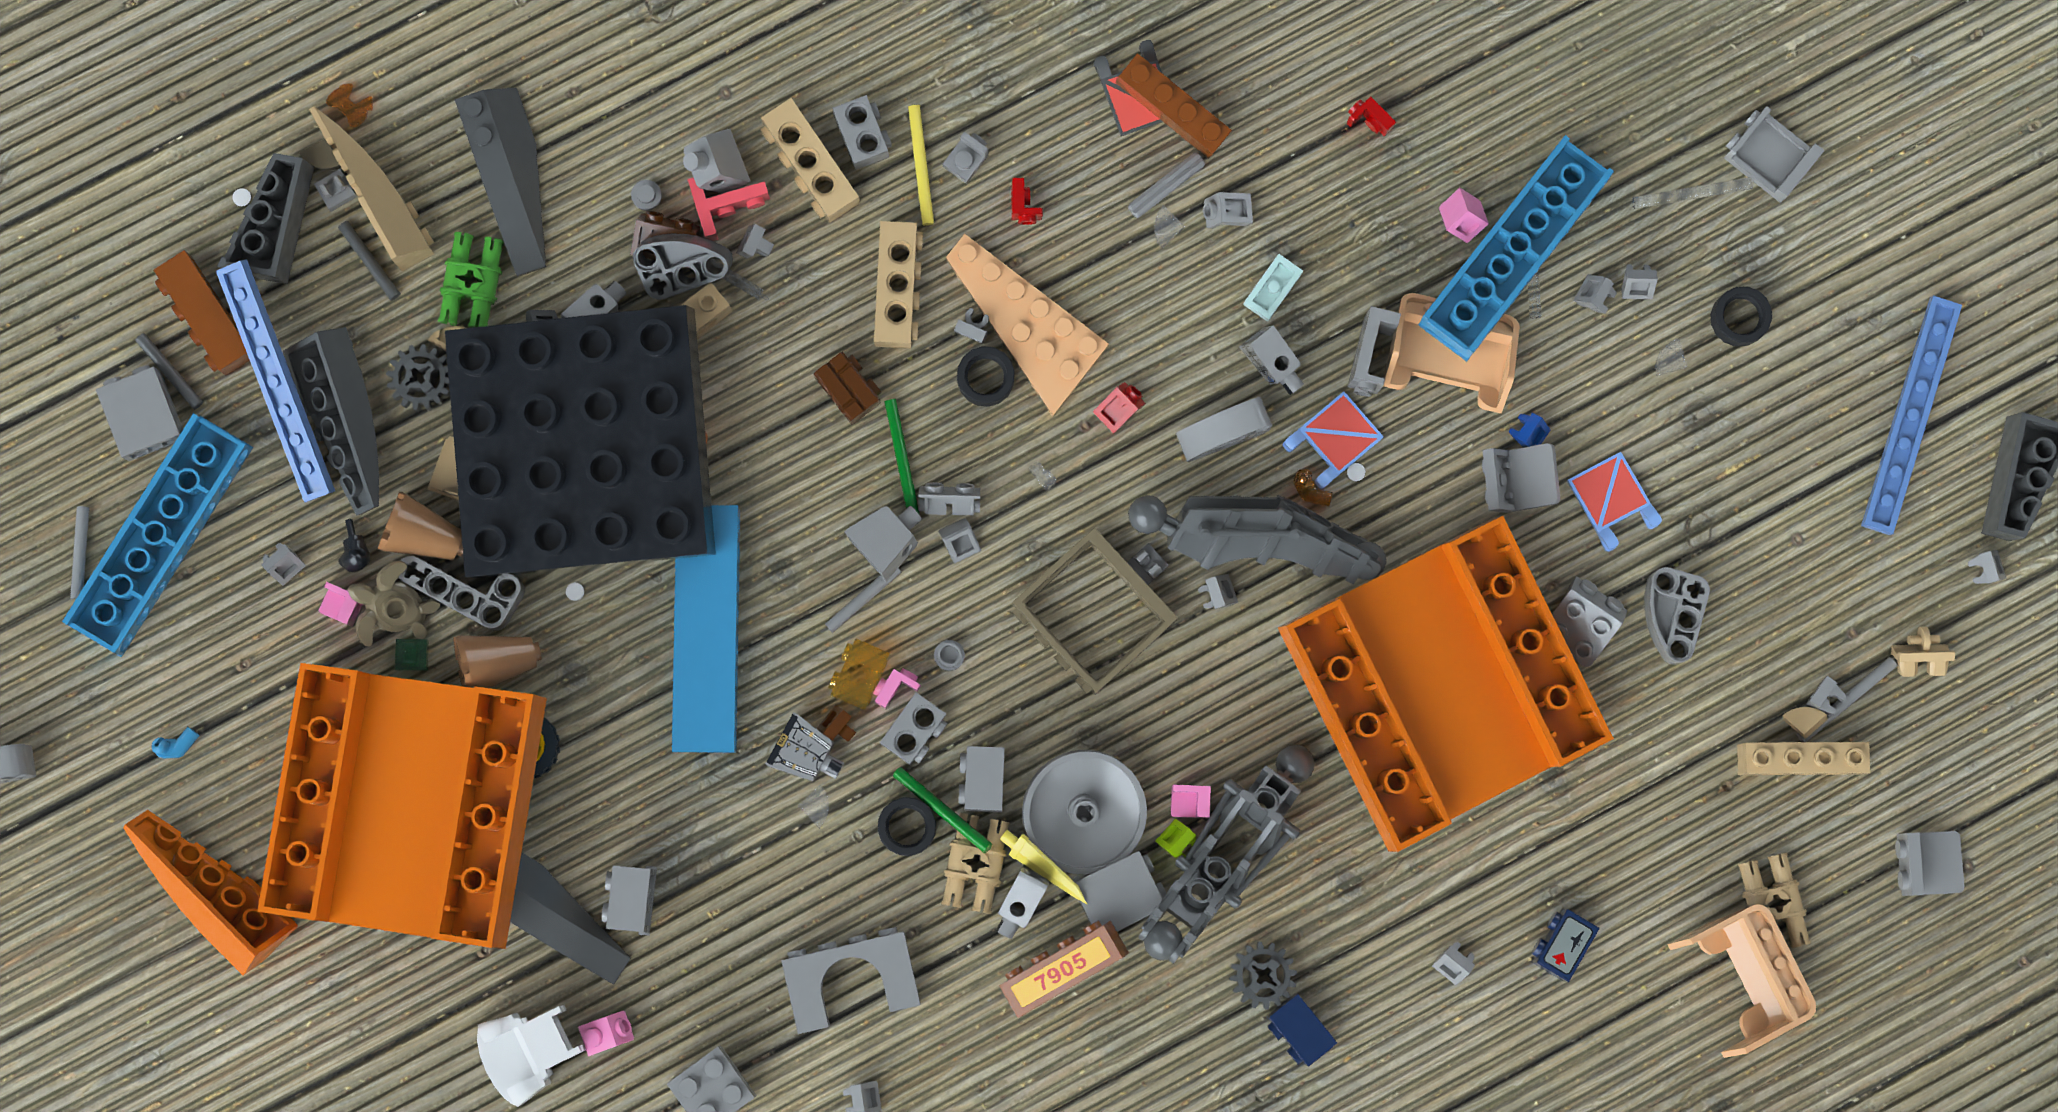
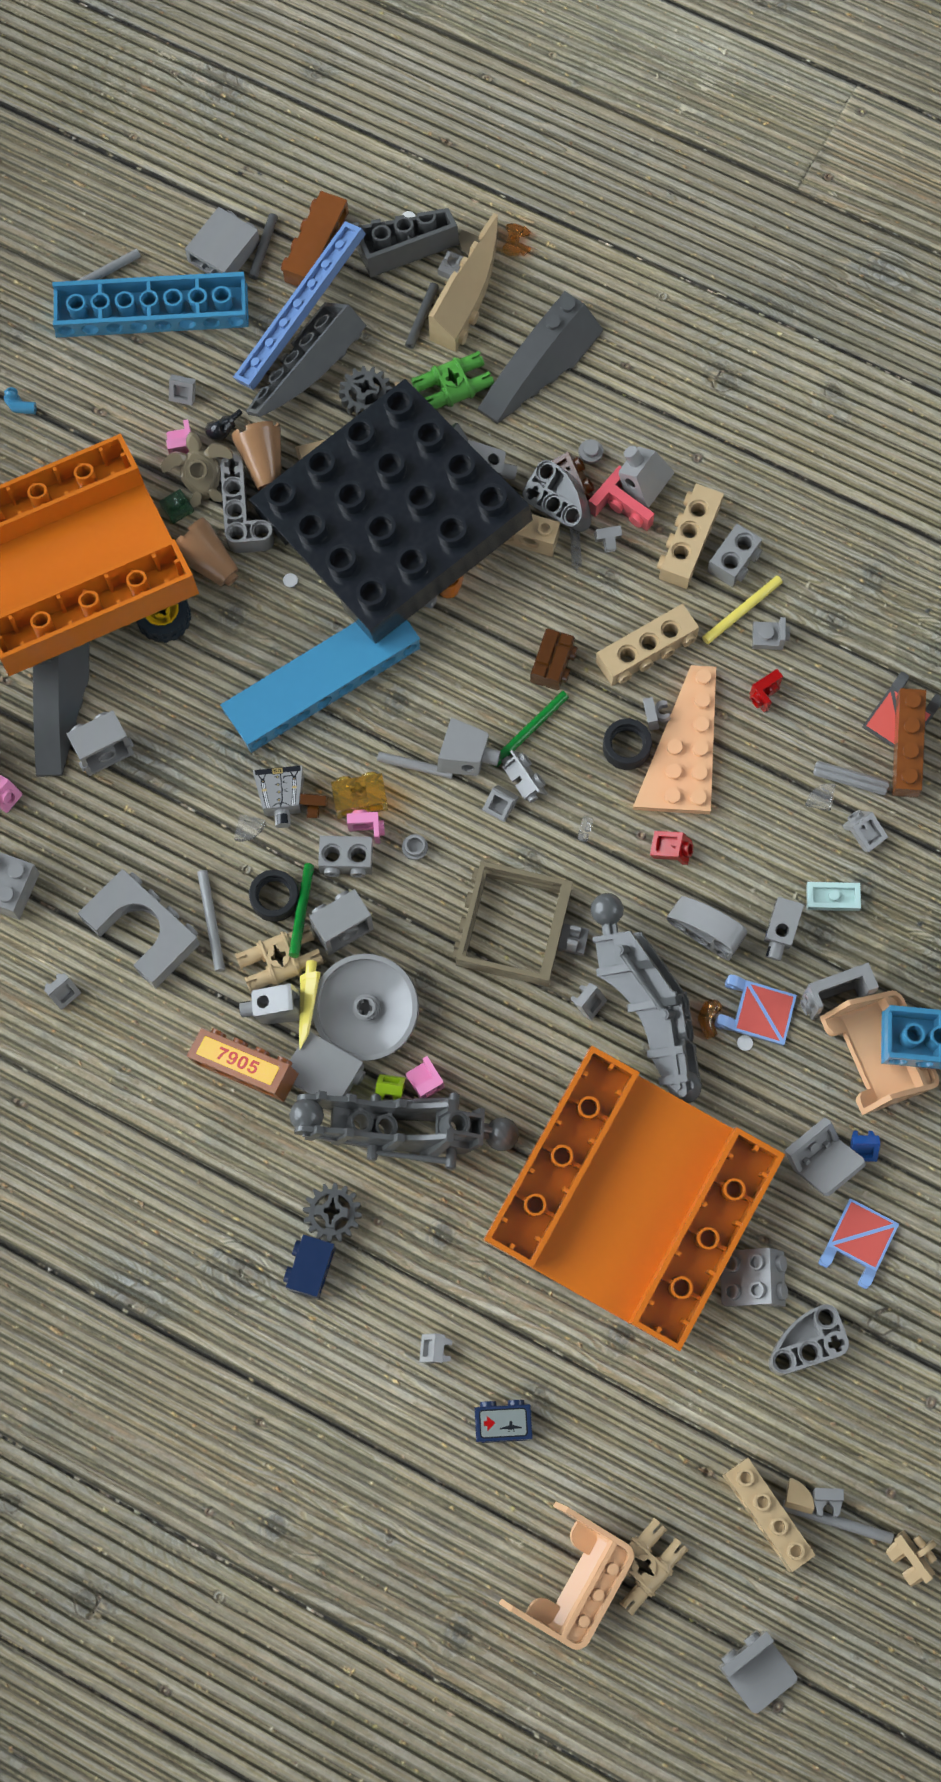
camera: 65 degrees right, 10 degrees down
(888, 905) = (211, 922): none -> light grey bar

